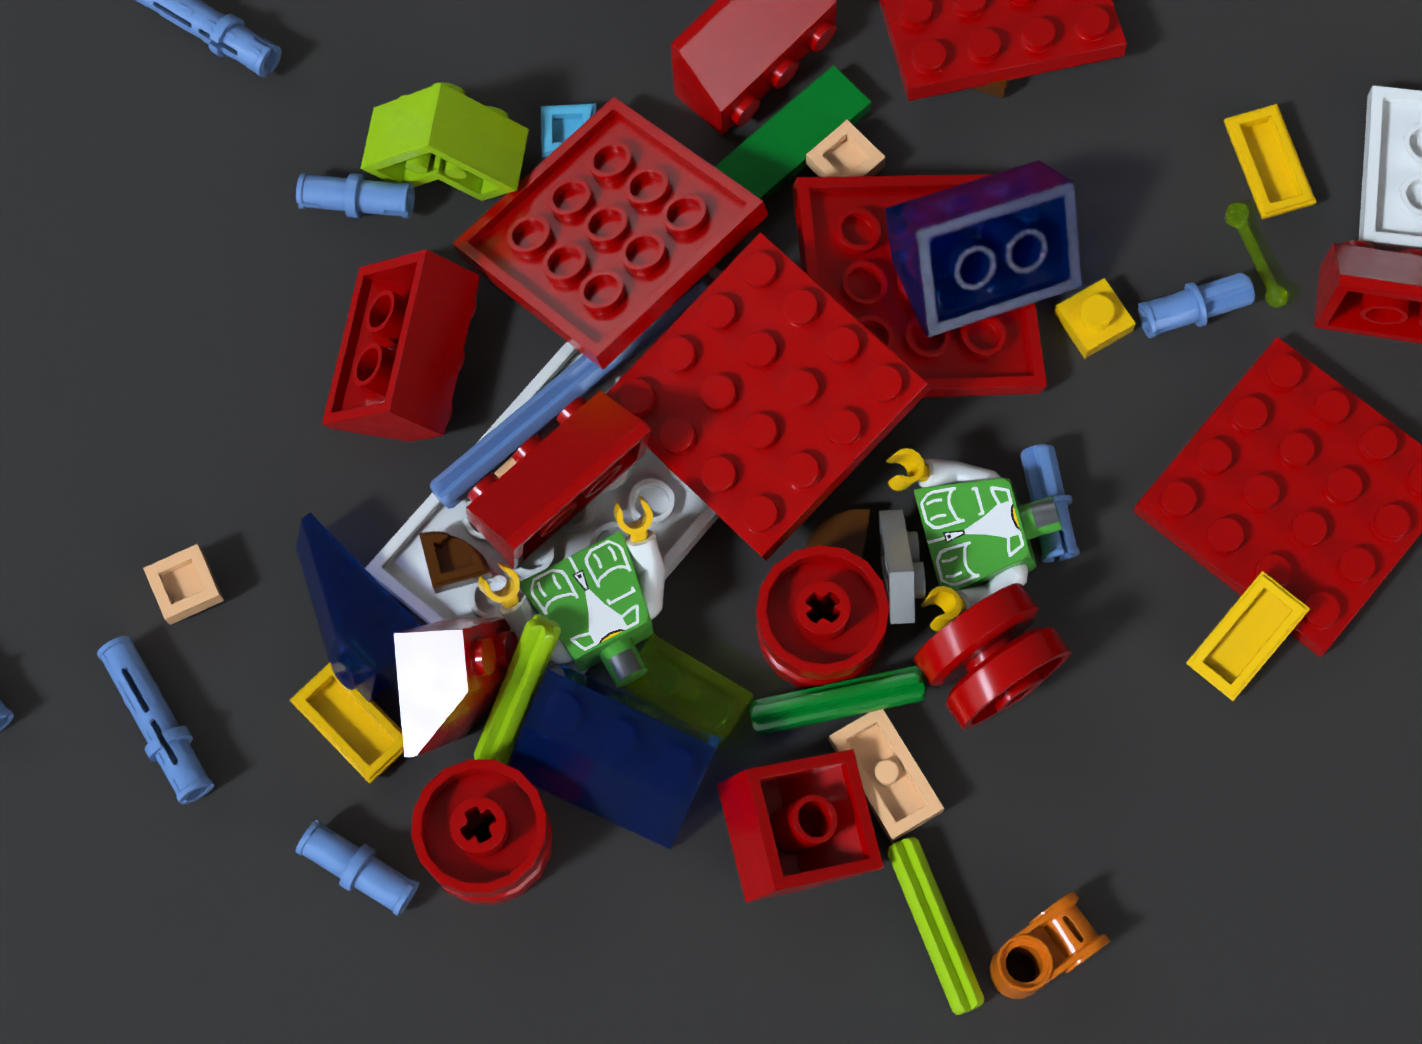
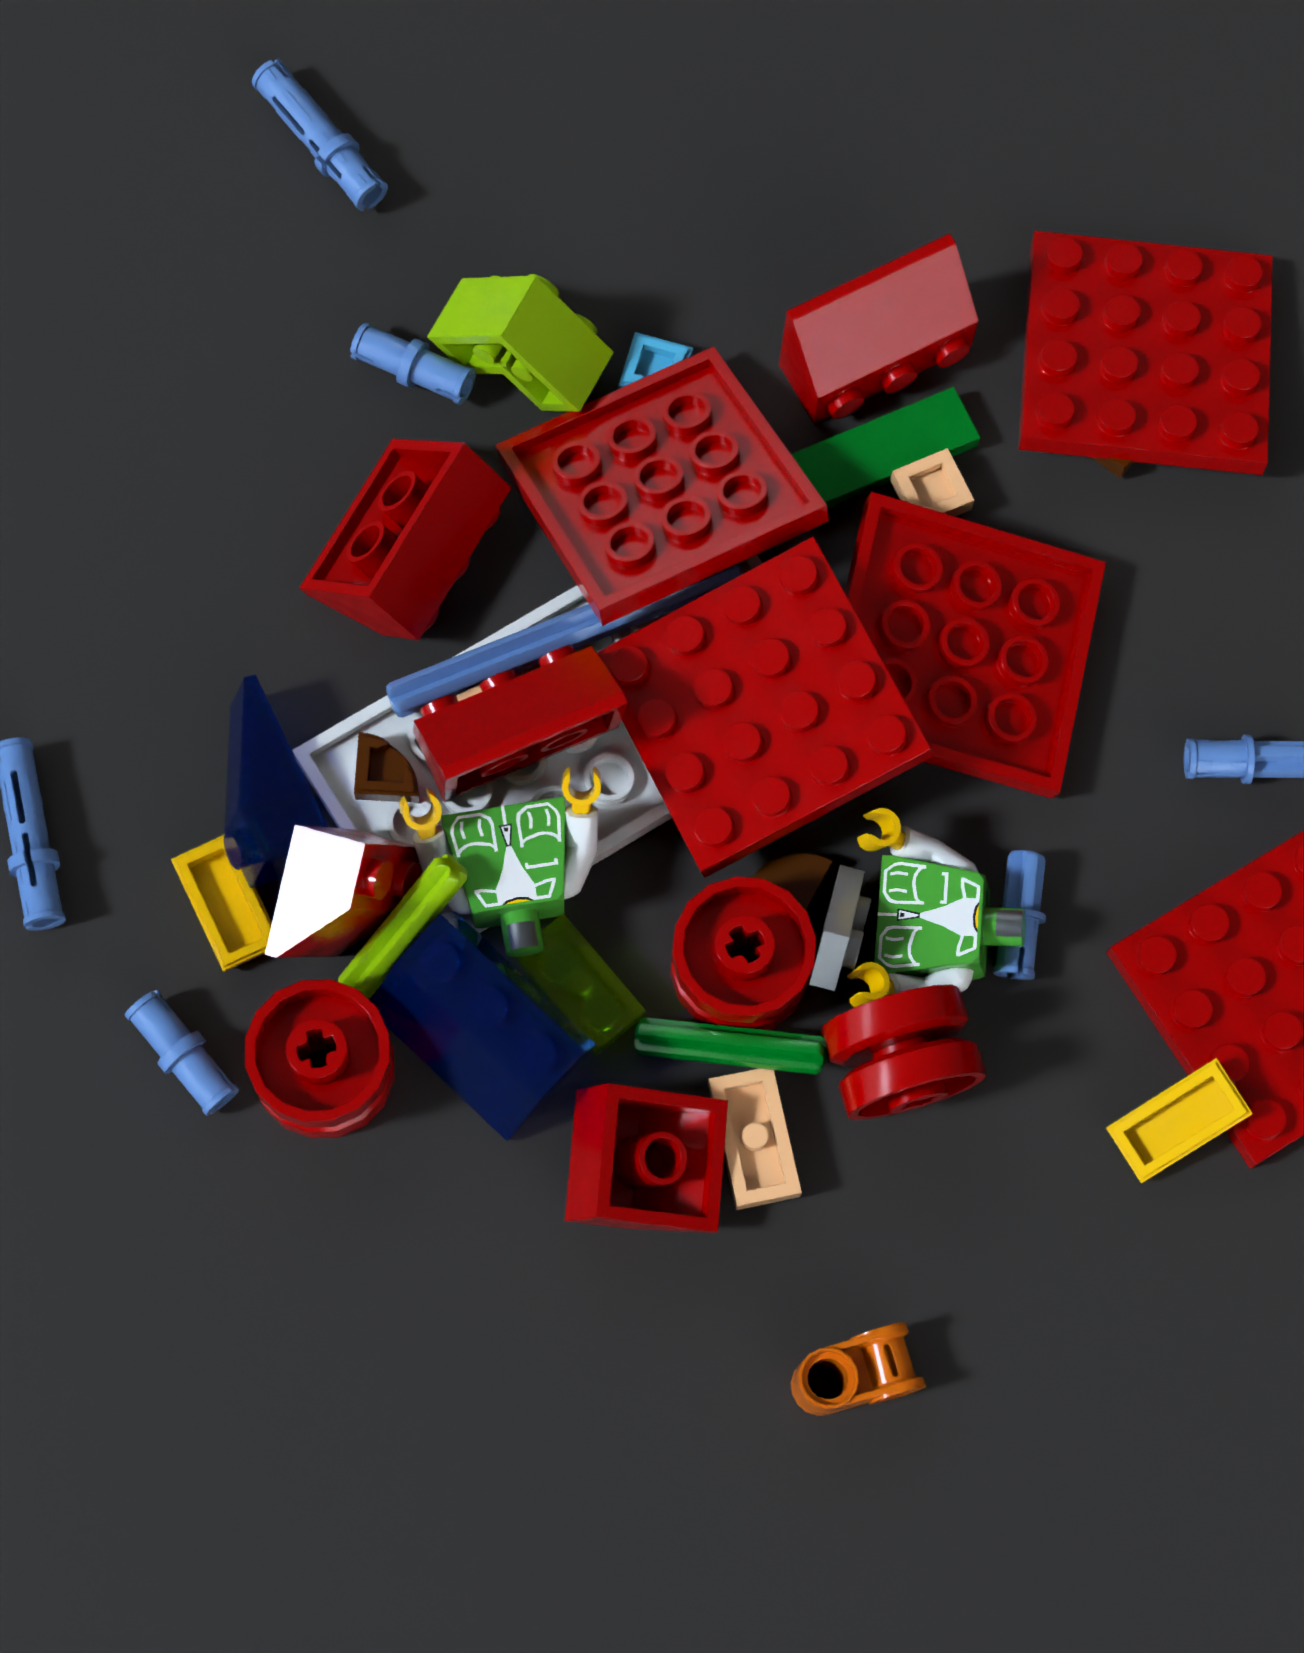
camera: 10 degrees right, 0 degrees up
(183, 584) = (103, 705): light nougat plate -> none
(935, 926) = (752, 1310): lime axle -> none
(986, 246) = (1045, 627): clear blue slope -> none
(1094, 318) = (1136, 739): yellow plate -> none

